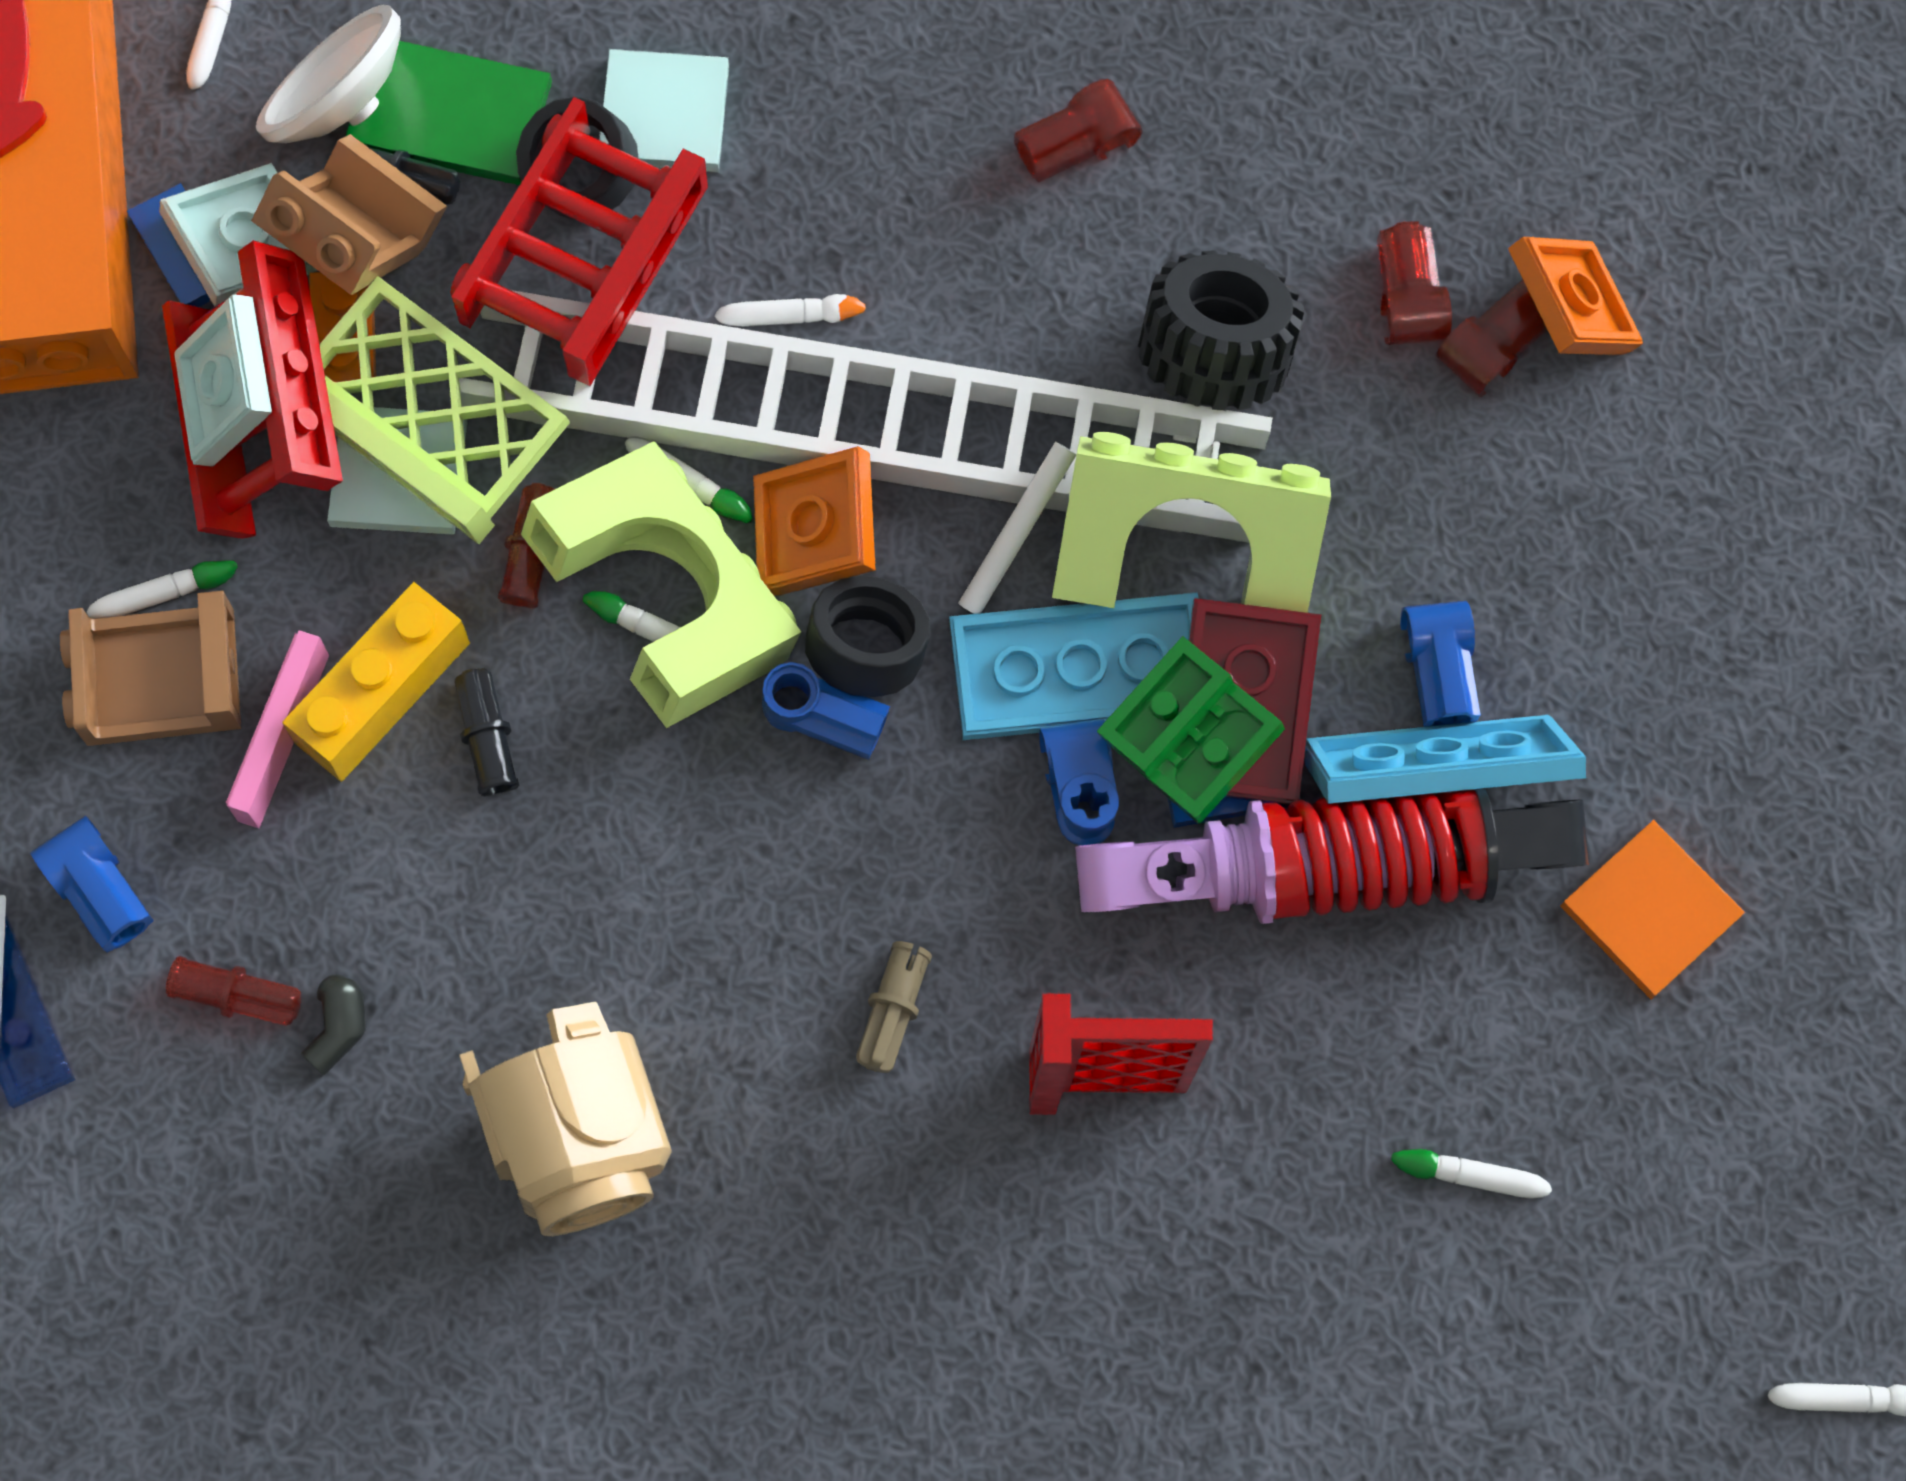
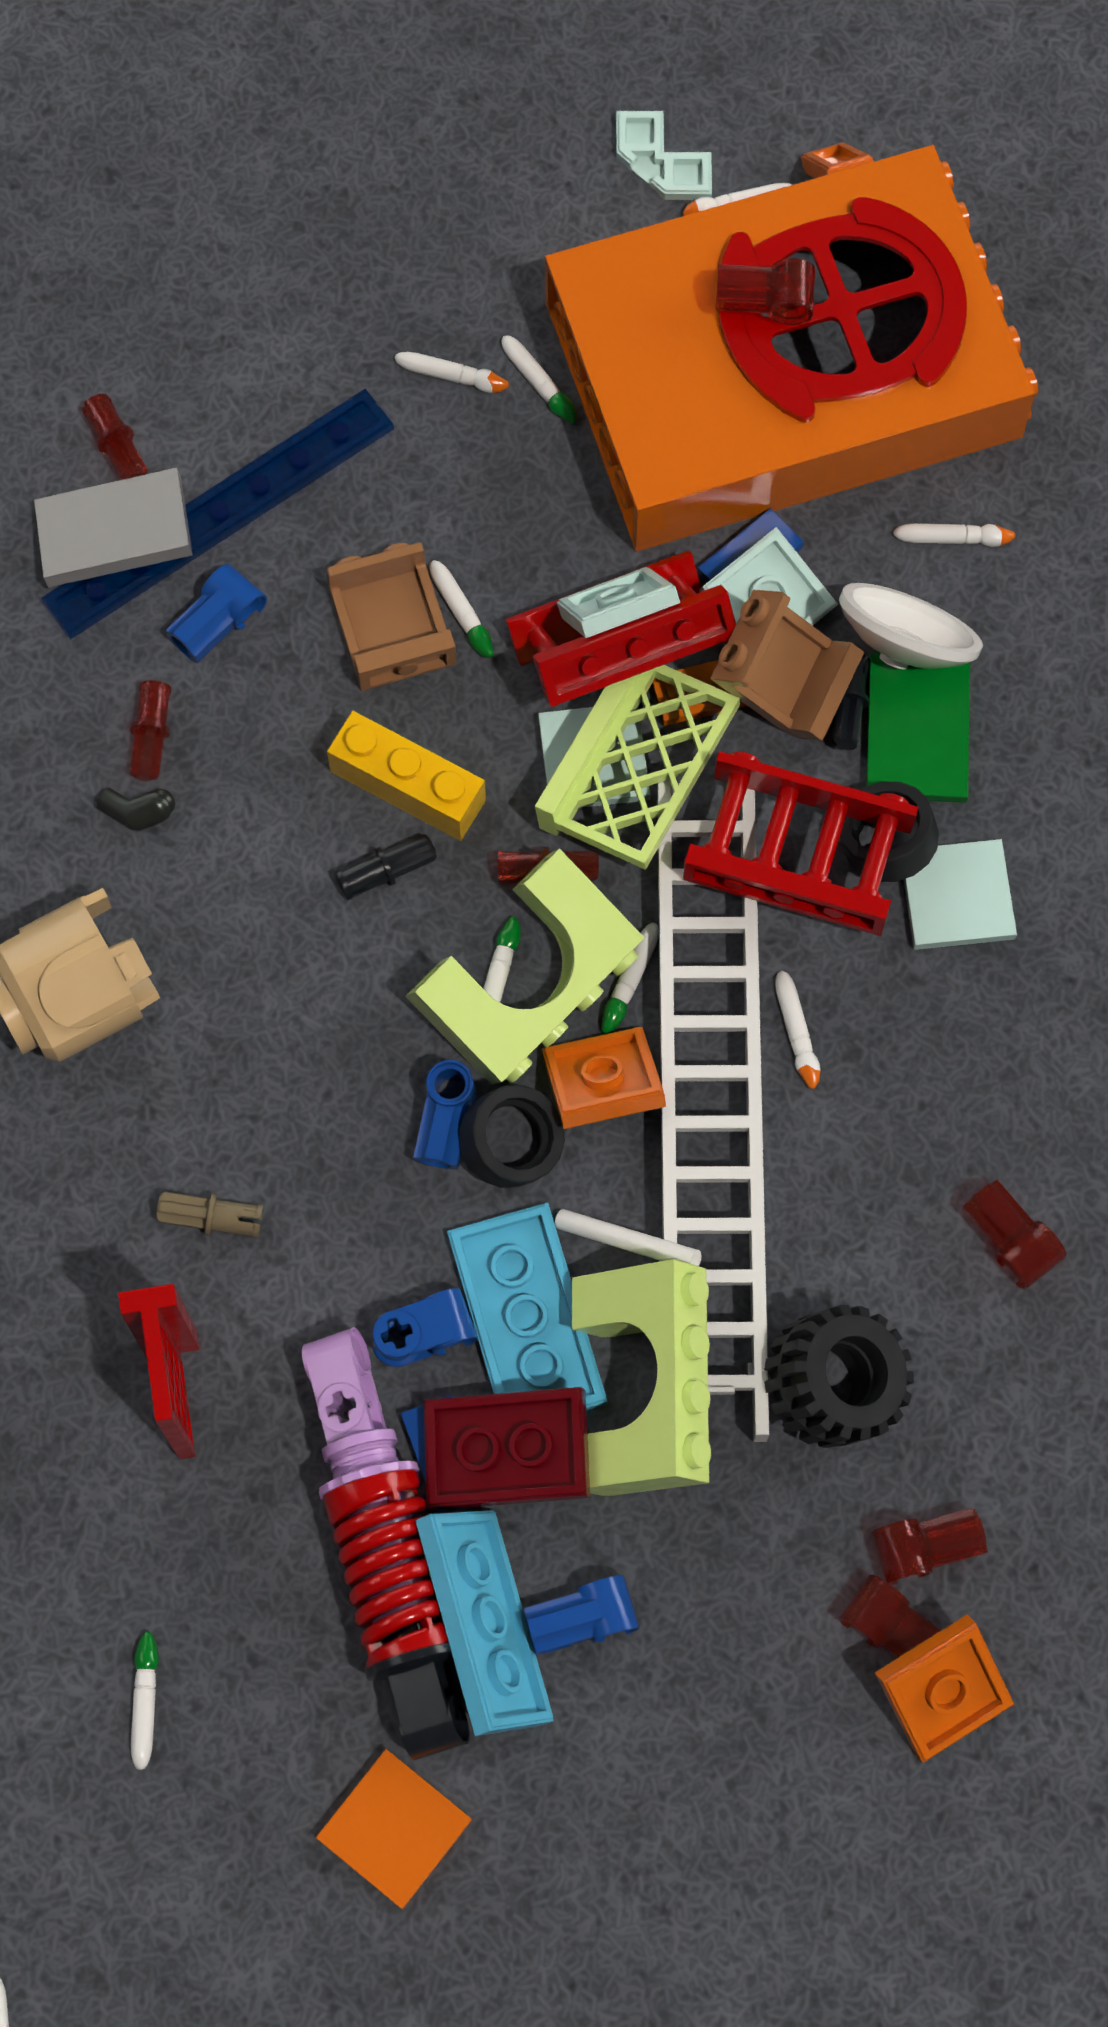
camera: 85 degrees right, 0 degrees up
(271, 741) = (333, 710): bright pink tile -> none
(1191, 730) = (467, 1403): green slope -> none

